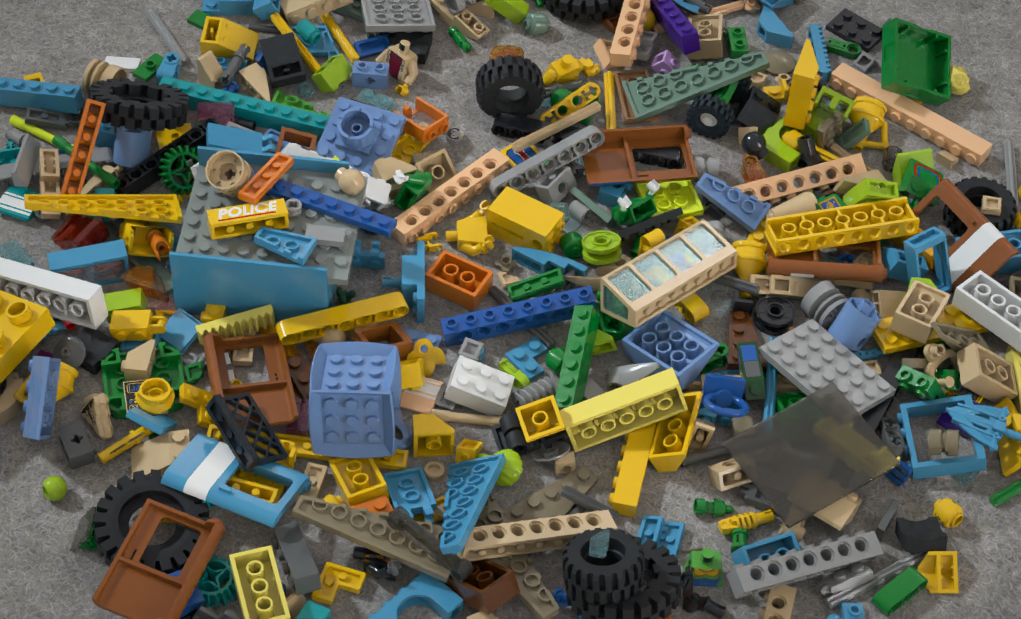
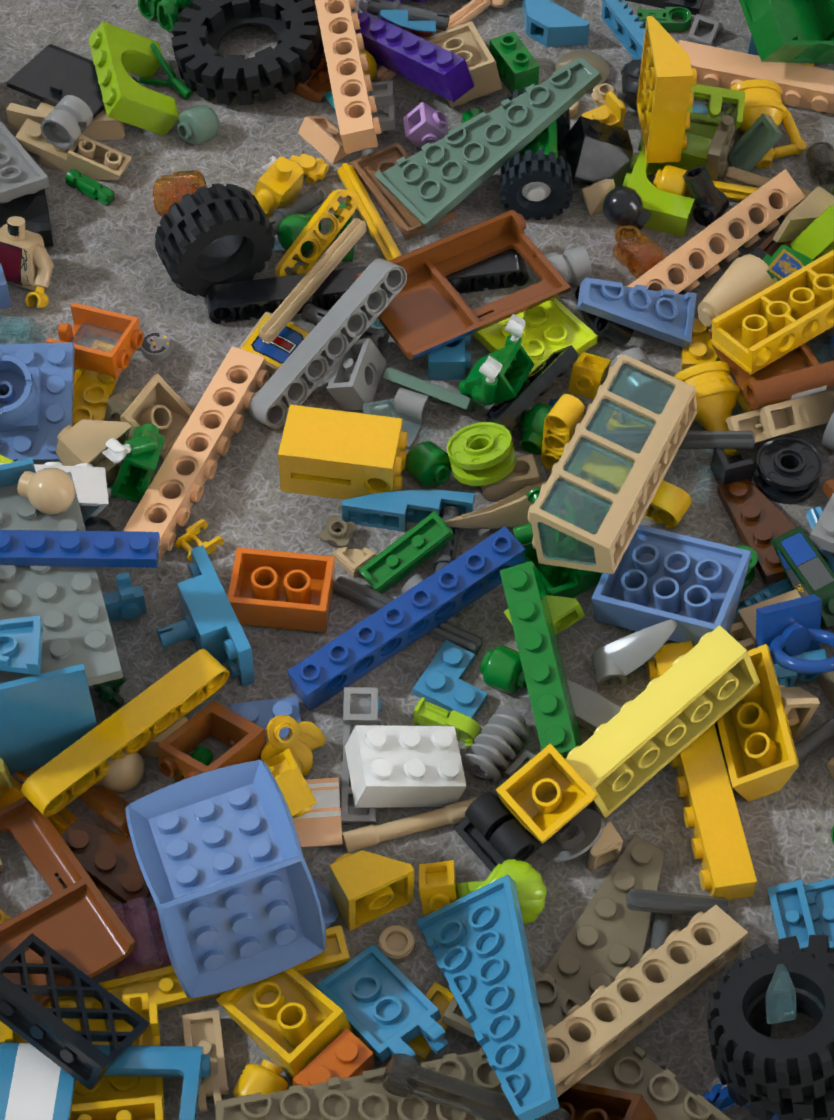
camera: 20 degrees left, 5 degrees up
(327, 235) = (52, 602): light grey tile -> none
(472, 233) = (263, 500): yellow torso -> none

